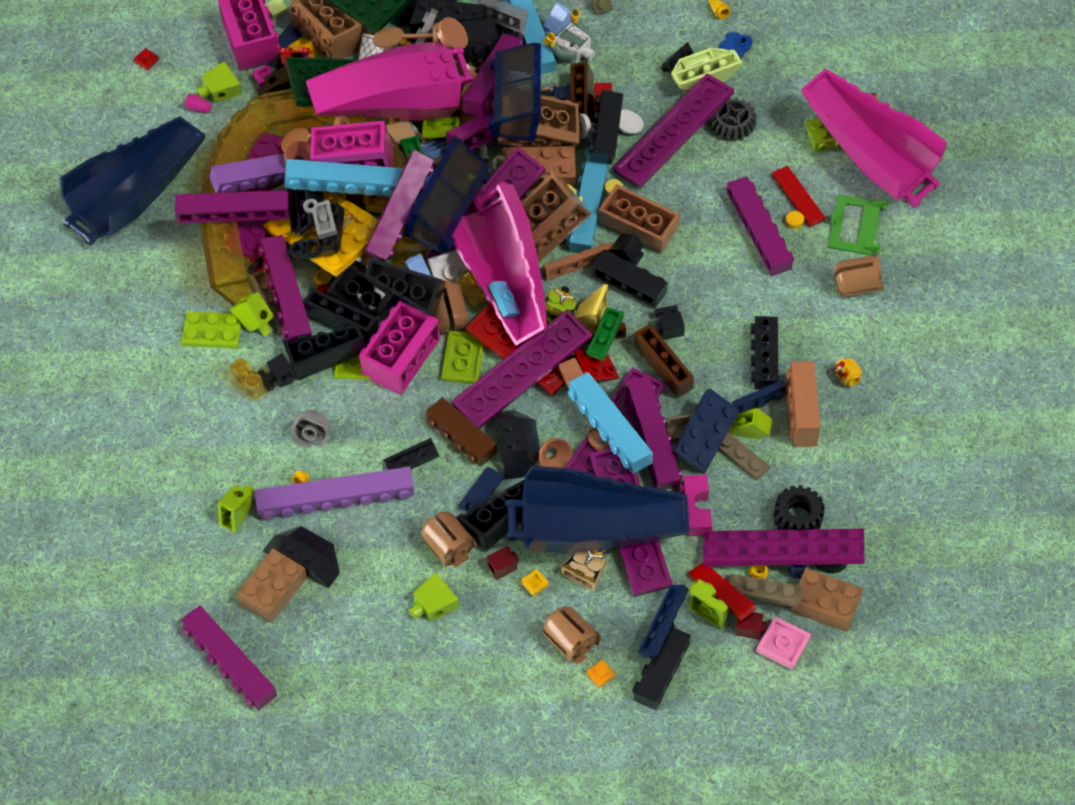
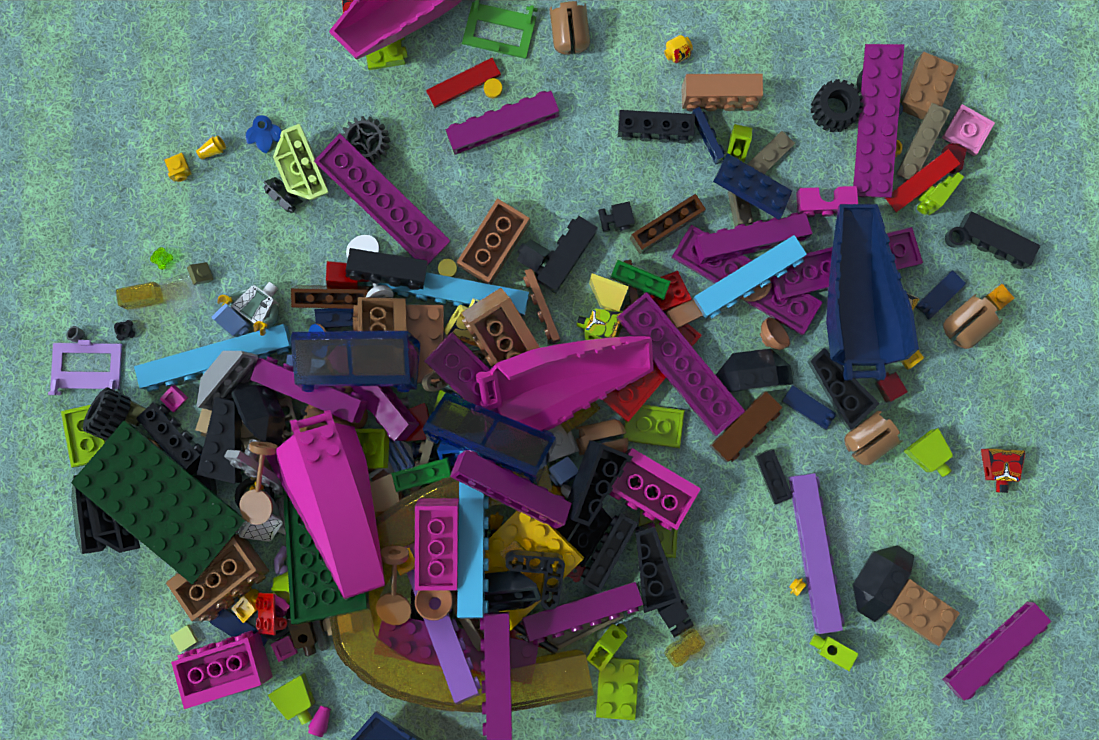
camera: 90 degrees left, 25 degrees up
(307, 426) = (742, 578): light grey cylinder -> none
(322, 217) = (529, 573): light grey hinge -> none
(418, 667) = (1002, 467): none -> red torso
(452, 33) = (267, 432): nougat tile -> none
(504, 299) = (603, 380): medium azure plate -> none
(601, 615) = (940, 294): none -> dark blue hinge
(663, 620) = (961, 235): dark blue plate -> none

